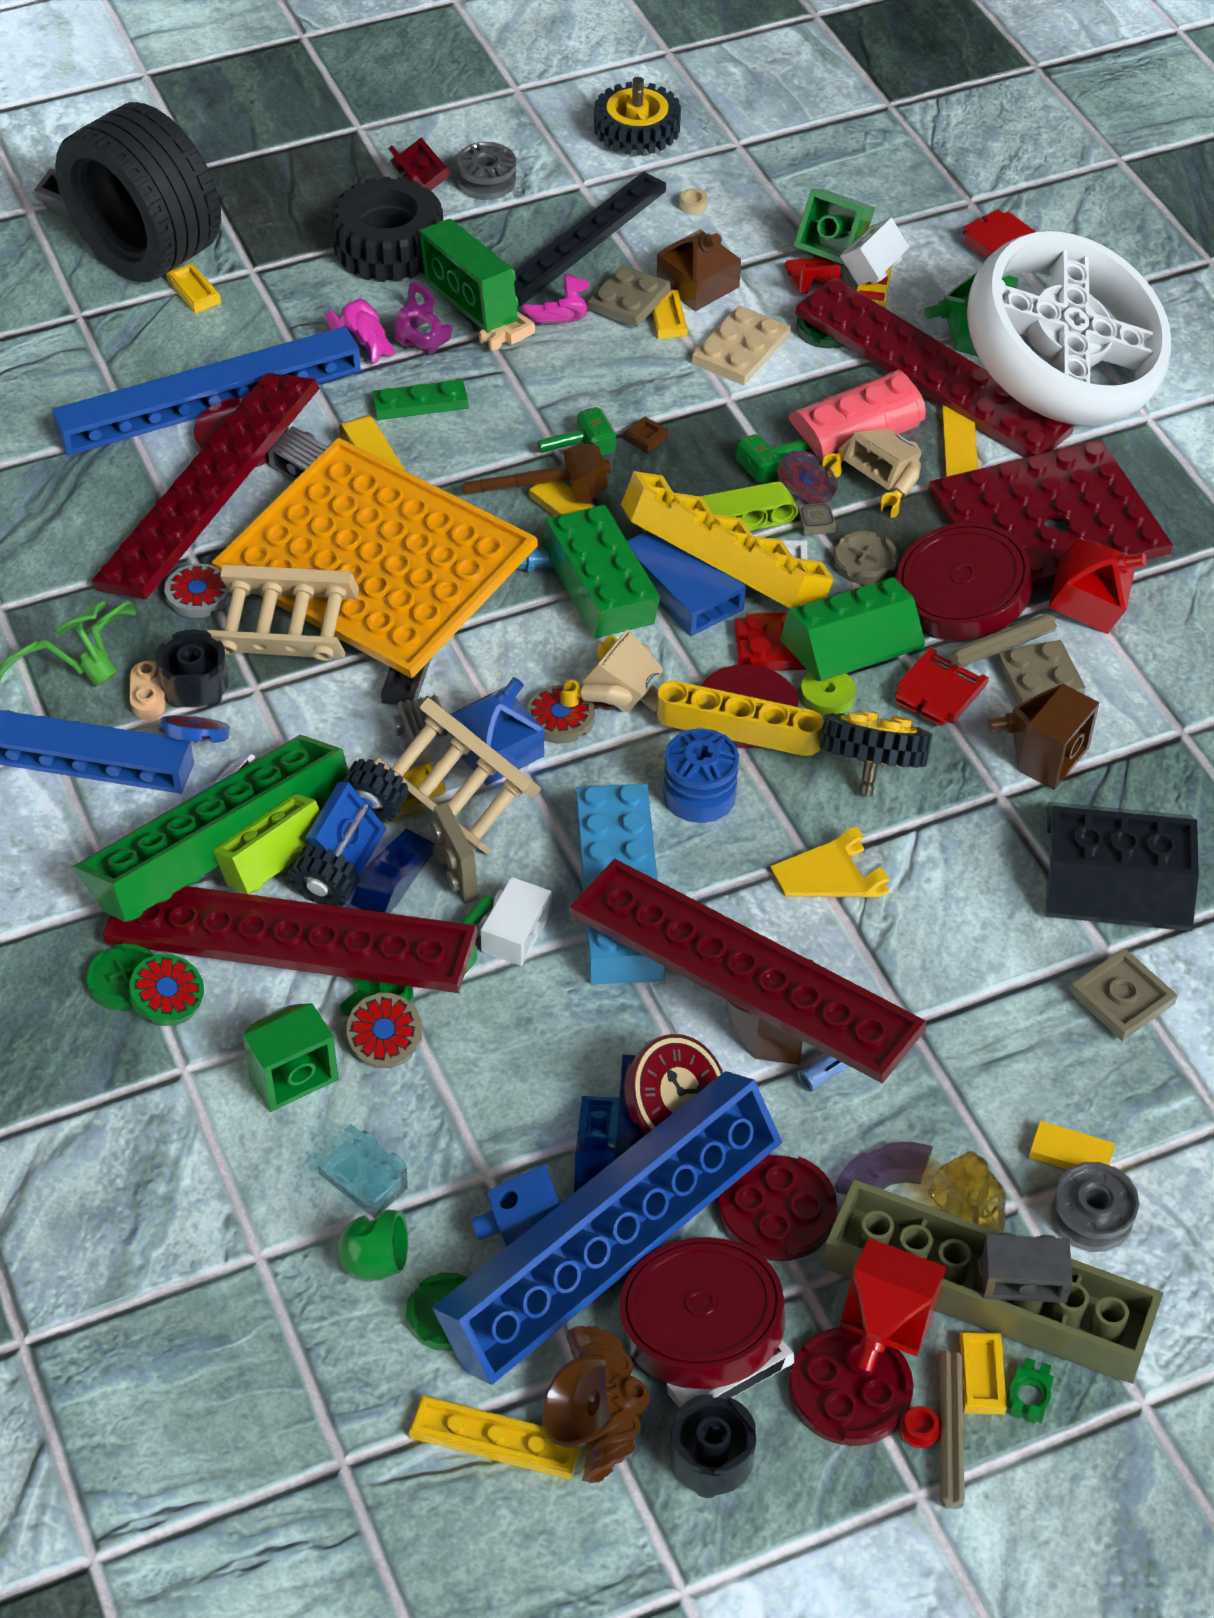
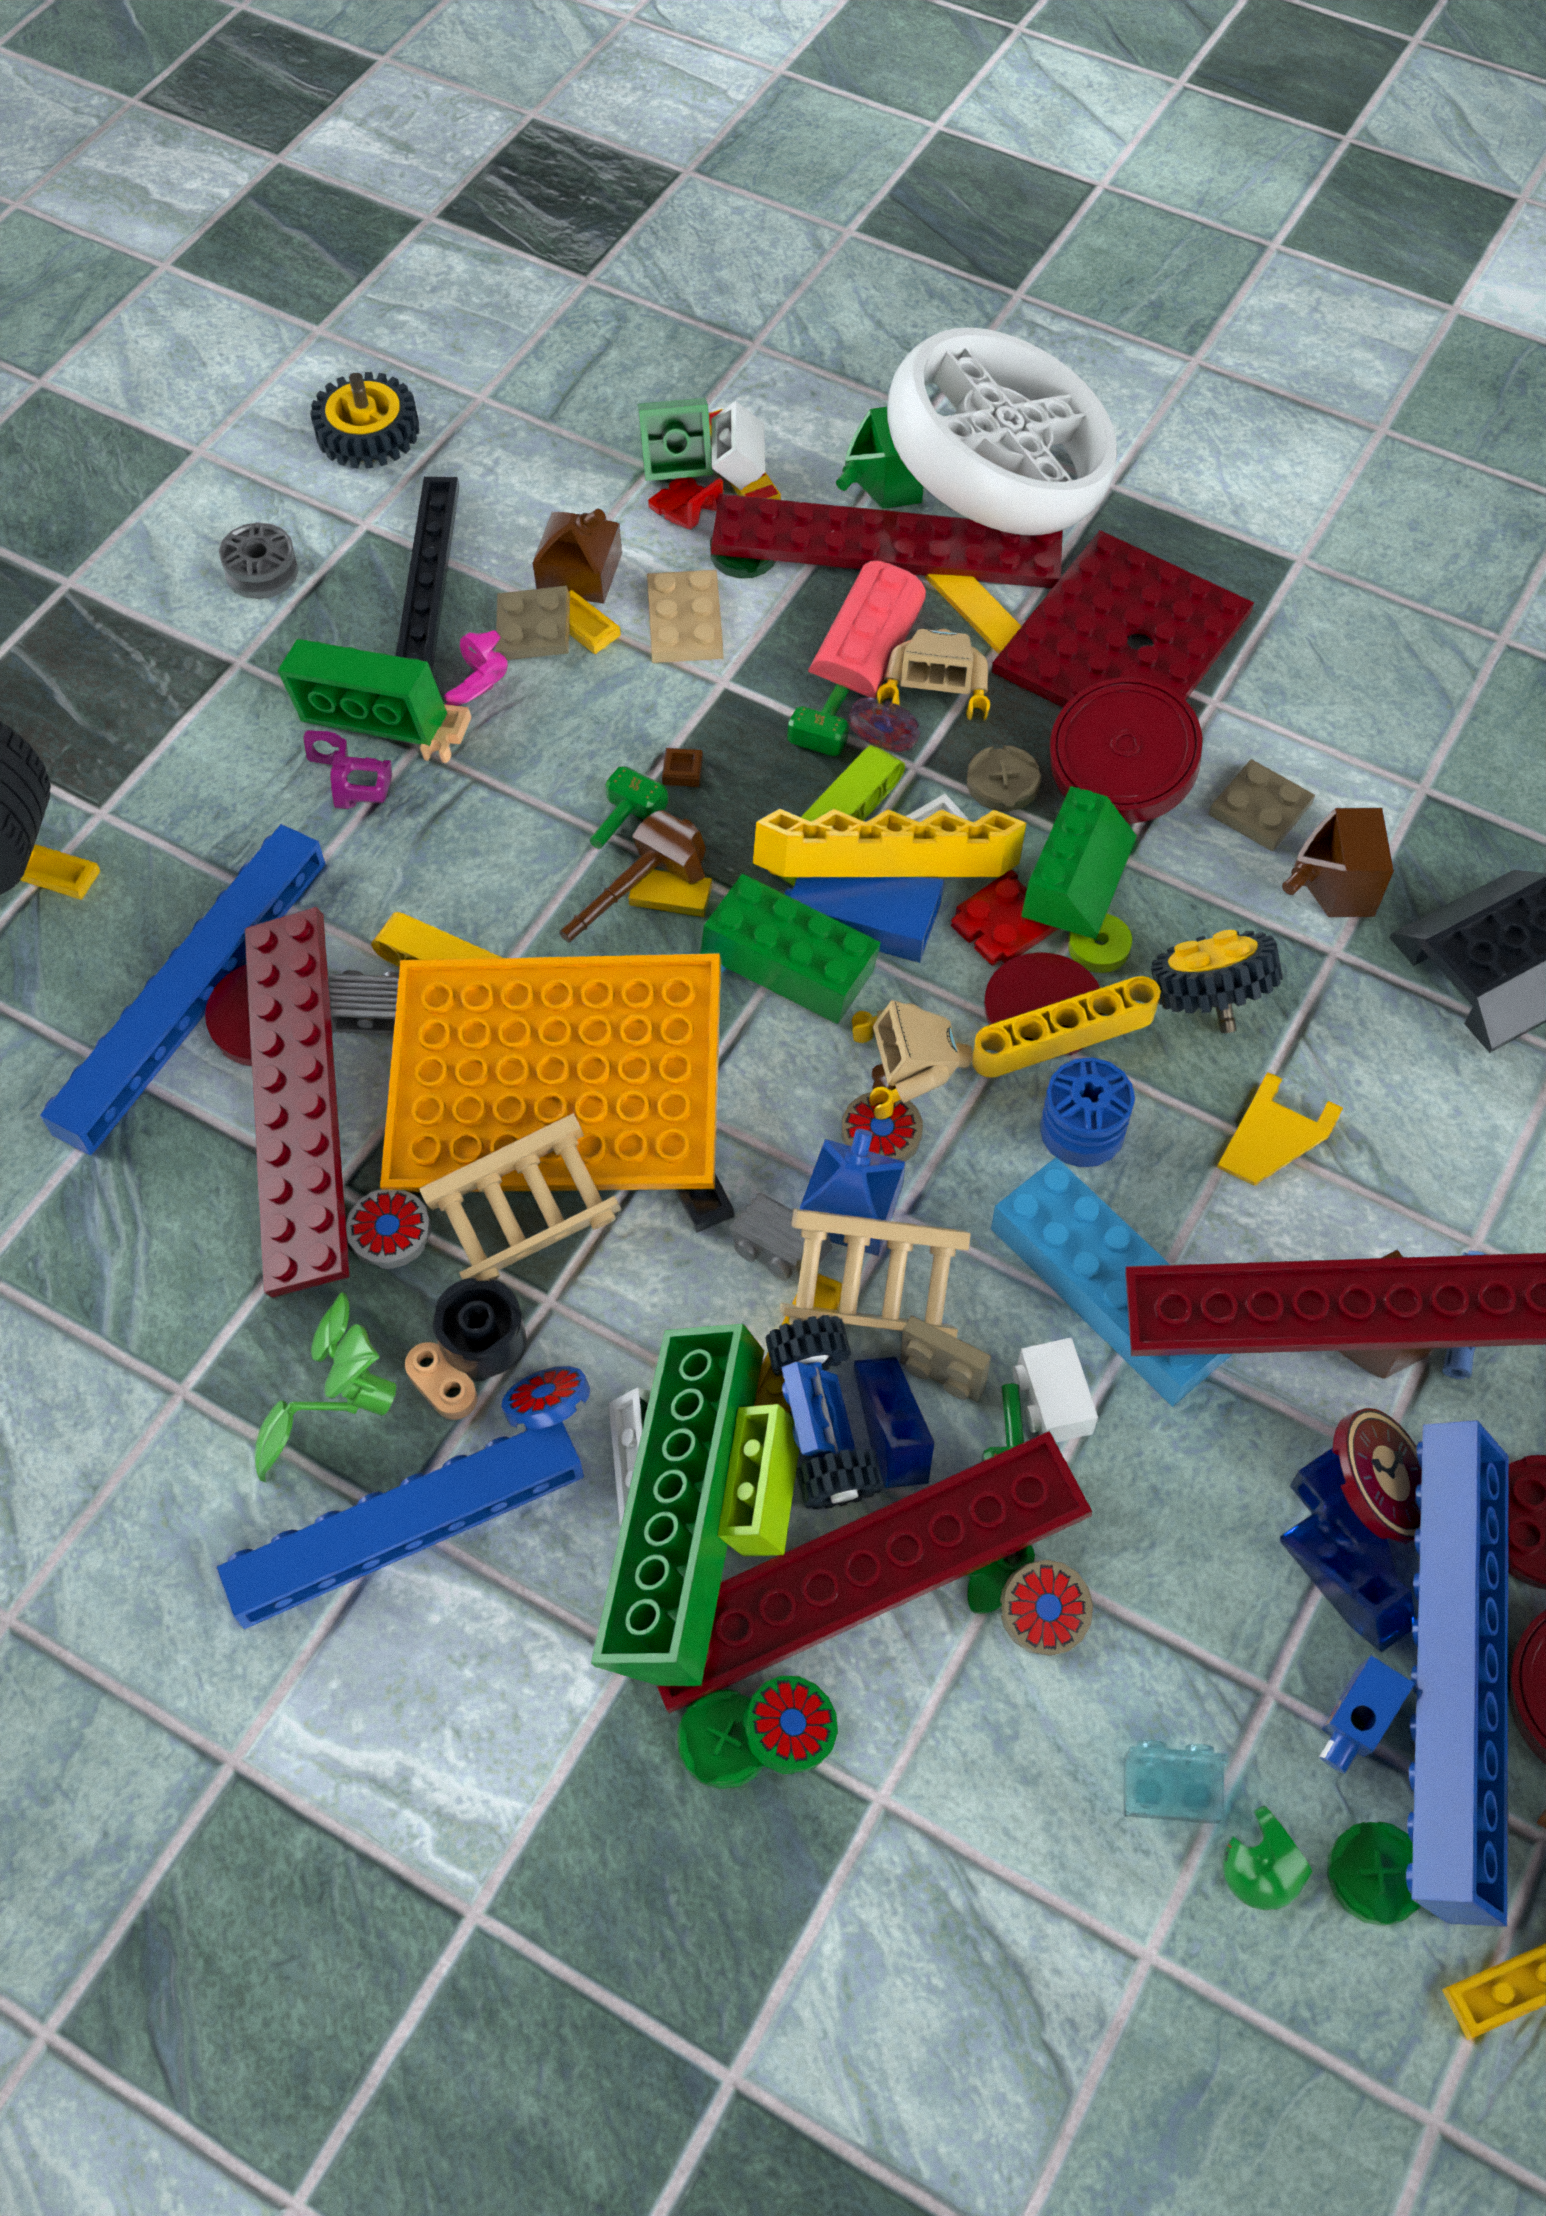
camera: 35 degrees left, 10 degrees up
(289, 1054) = (985, 1706): green piece -> none
(364, 322) = (293, 808): dark pink hair -> none
(380, 226) = (210, 652): black tyre -> none
(420, 164) = (184, 591): dark red bracket -> none
(420, 399) = (421, 861): green plate -> none
(693, 201) = (496, 483): tan tile -> none
(816, 519) = (925, 763): dark tan tile -> none
(937, 689) = (1196, 877): red plate -> none
(994, 231) = (825, 368): red plate -> none
(1002, 640) = (1209, 792): dark tan axle -> none
(1094, 583) = (1241, 683): red piece -> none

